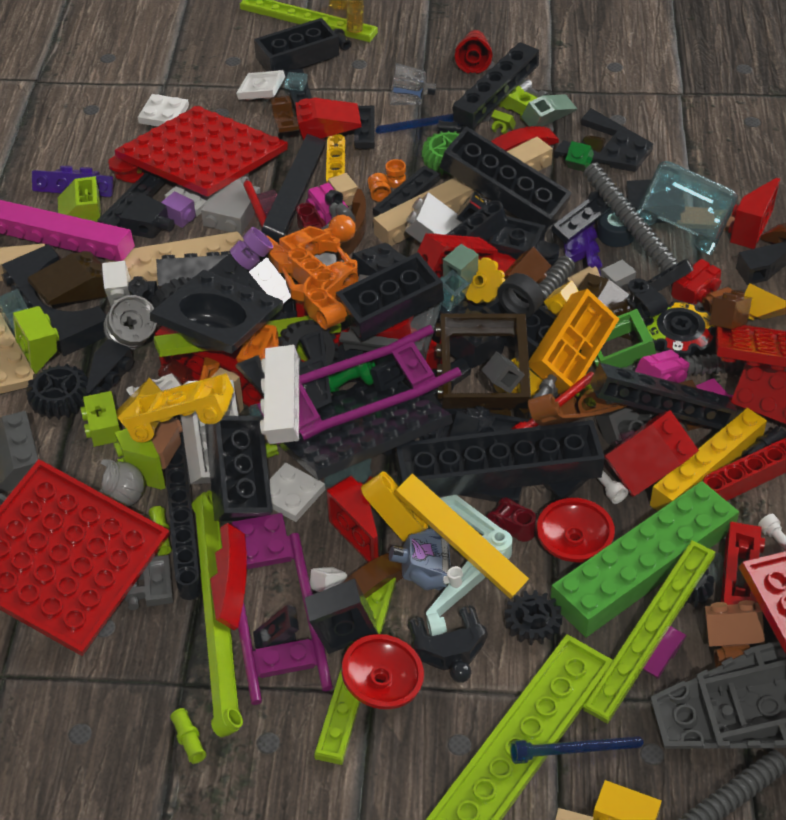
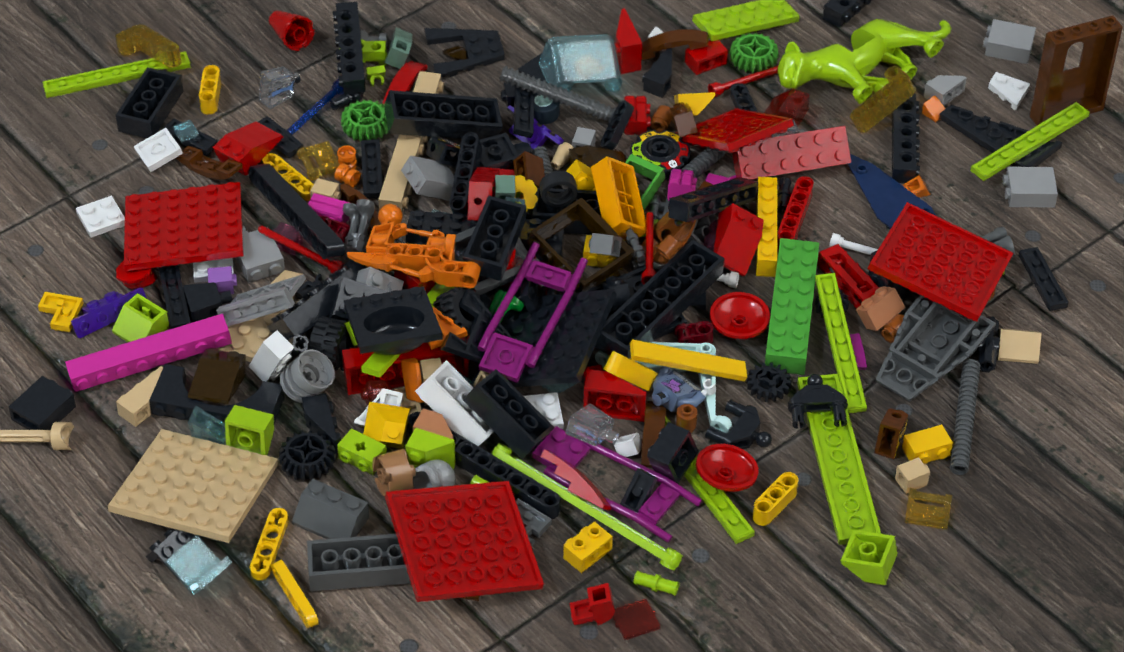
camera: 45 degrees left, 0 degrees up
(47, 159) = (63, 307): none -> yellow plate
(92, 447) = (393, 471): none -> medium nougat brick
(99, 710) = (597, 607): none -> red brick
(131, 756) = (635, 619): none -> clear red piece
(170, 240) = (261, 301): none -> light grey fence
(170, 648) = (587, 547): none -> yellow brick
(207, 397) = (442, 392): yellow piece -> none
(249, 250) = (355, 265): medium lavender wheel -> none
(280, 394) = (496, 346): white brick -> none
(308, 535) = (592, 426): none -> clear torso
(335, 196) = (337, 201): black hinge -> none
(357, 63) = (210, 89): none -> yellow beam
(377, 164) = (325, 159): none -> clear yellow plate
(388, 751) = (775, 498): none -> yellow beam
(406, 593) = (687, 417): none -> dark orange brick
(523, 751) = (849, 451): piece -> none
(553, 669) = (817, 398): none -> black connector
(579, 156) = (464, 69): green brick -> none
(599, 762) = (892, 424): none -> reddish brown torso
(645, 299) = (625, 145): black piece -> none

